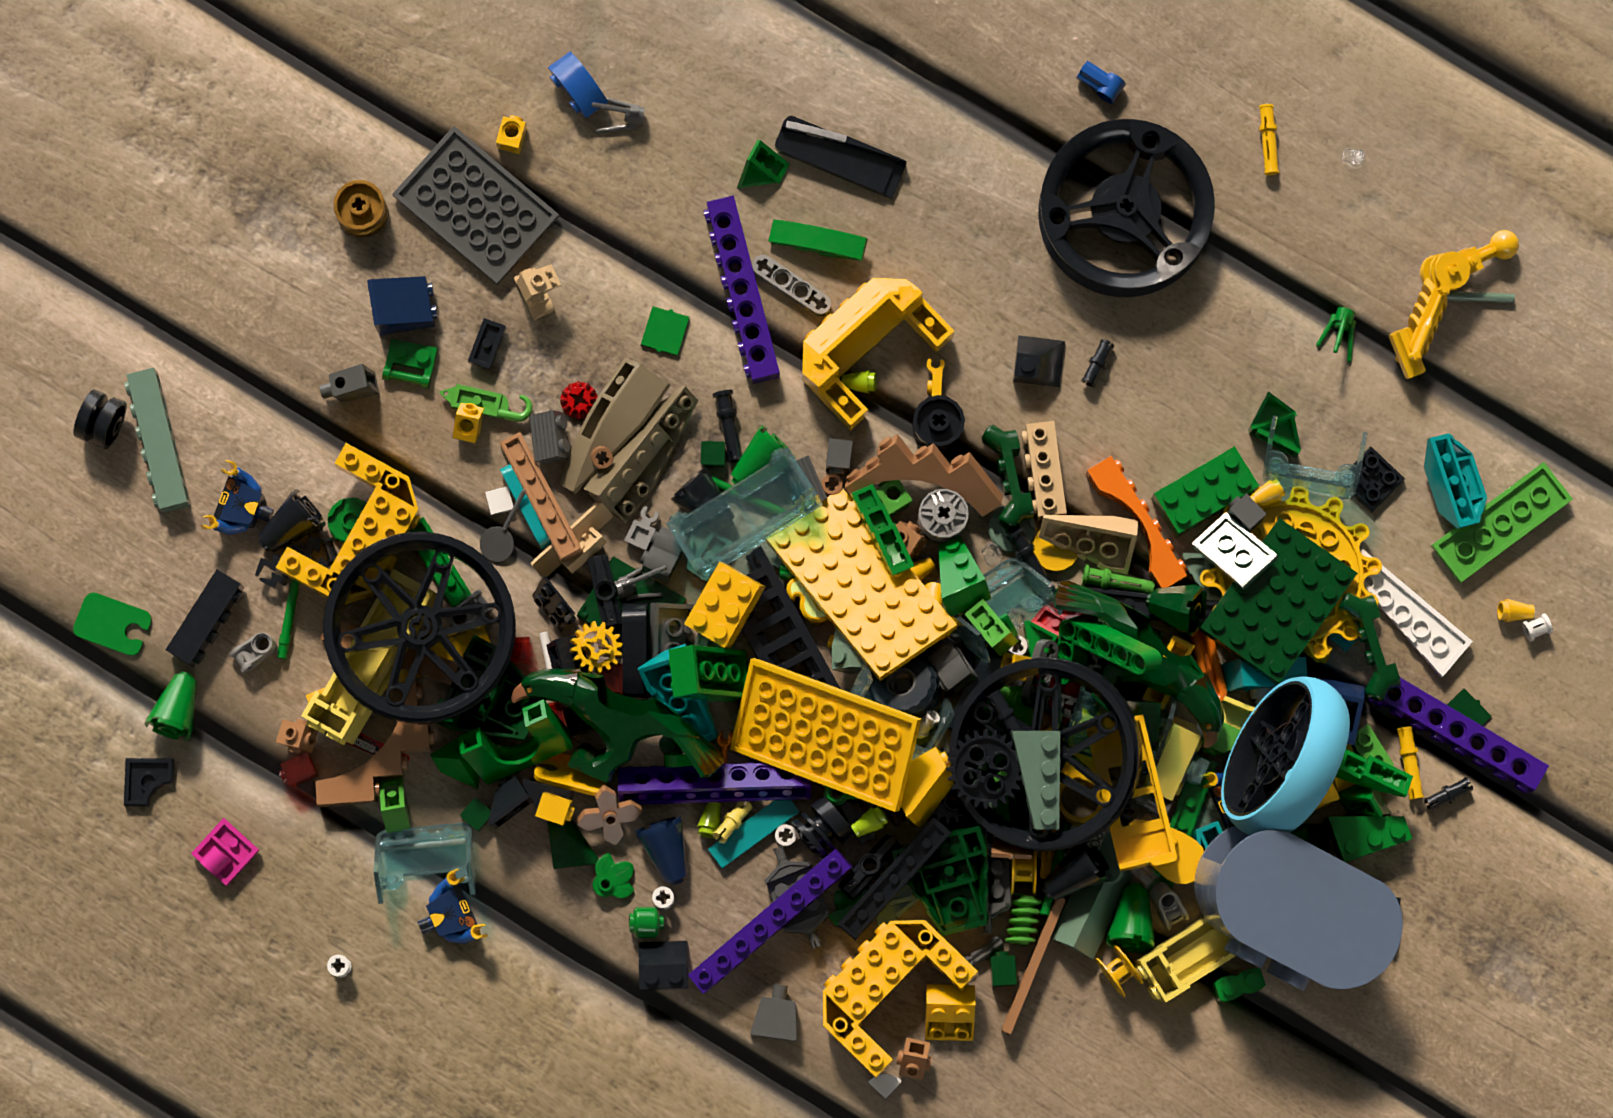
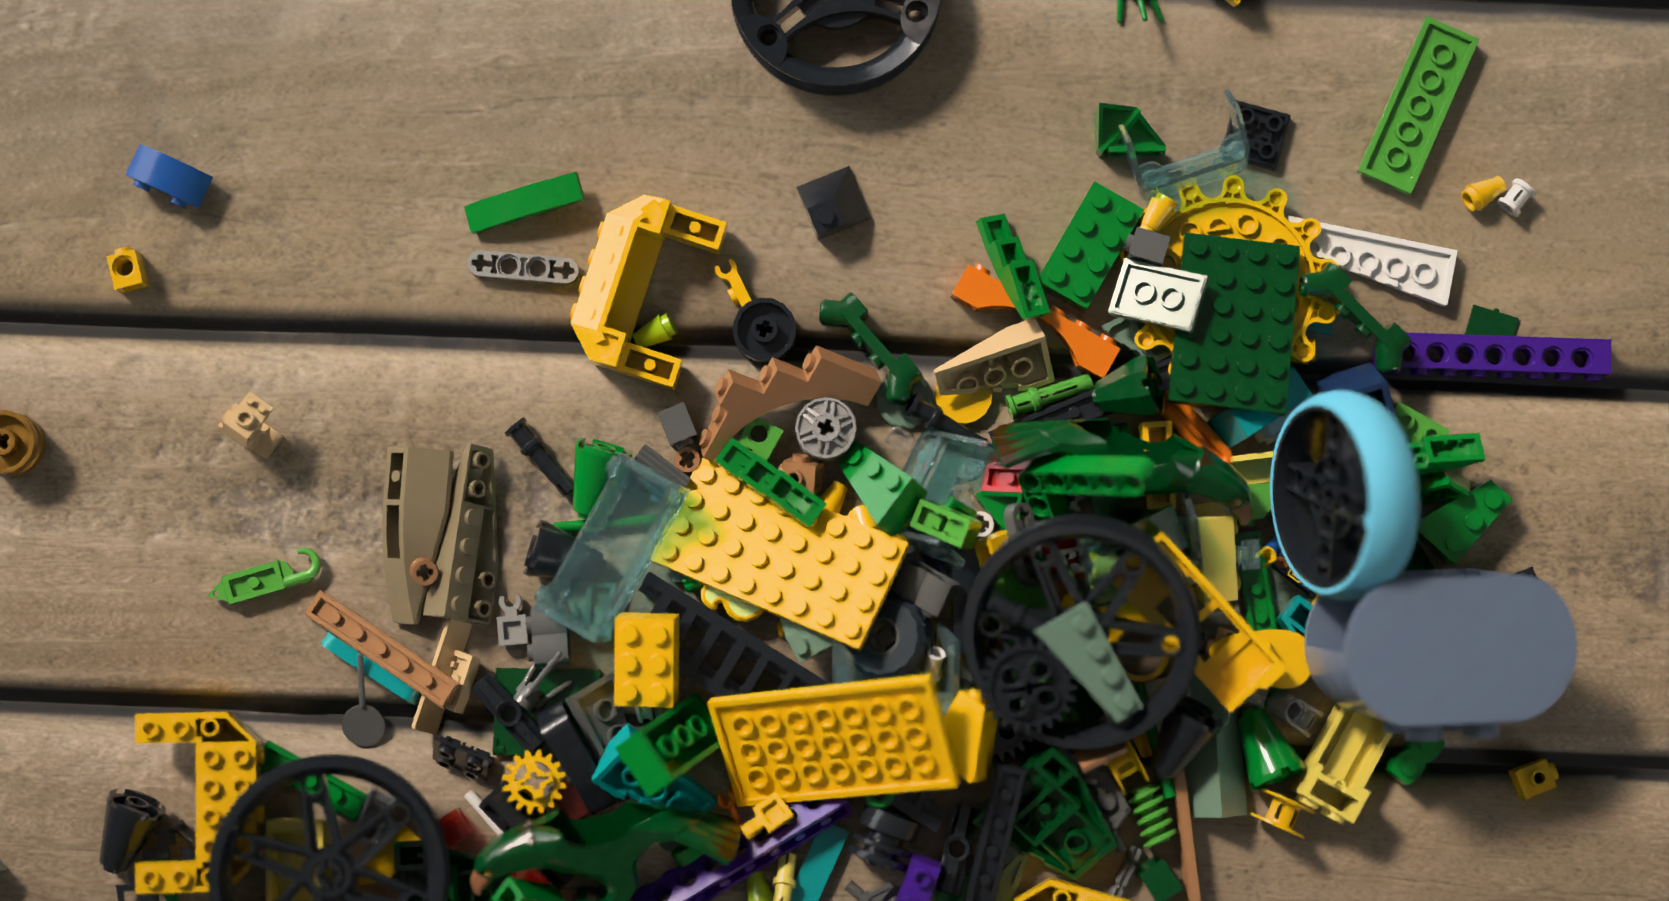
camera: 30 degrees left, 5 degrees up
(239, 504) = (59, 840): torso -> none
(344, 516) = (180, 788): green tile -> none
(351, 384) = (106, 641): dark grey torso -> none
(401, 304) = (111, 523): dark blue slope -> none
(411, 356) = (154, 573): green plate -> none
(464, 430) = (257, 612): yellow brick -> none
(475, 205) = (132, 369): dark grey plate -> none
(487, 344) = (230, 514): black plate -> none
(499, 501) = (340, 677): white tile -> none
(549, 436) = (354, 578): dark grey brick -> none
(568, 403) = (353, 510): red gear -> none
(633, 115) = (248, 176): dark grey plant -> none
(665, 331) = (414, 392): green piece -> none
(713, 454) = (541, 498): dark green piece -> none
(726, 209) = (406, 224): dark purple brick -> none
(750, 763) = (770, 814): none -> yellow plate
(762, 167) = (420, 156): green slope -> none
(780, 829) = (840, 861): white bush -> none
(841, 156) = (497, 97): black piece -> none
(869, 822) = (932, 806): lime cone -> none
(1044, 469) = (905, 317): tan brick -> none
(1097, 363) = (898, 170): black pin -> none
(1141, 475) = (1012, 268): none -> green slope
(1309, 1054) = (1523, 778): none -> yellow brick
(1410, 761) = (1459, 412): yellow pin -> none
(1448, 794) = (1520, 427): black pin -> none
(1454, 481) = (1346, 89): teal wedge -> none

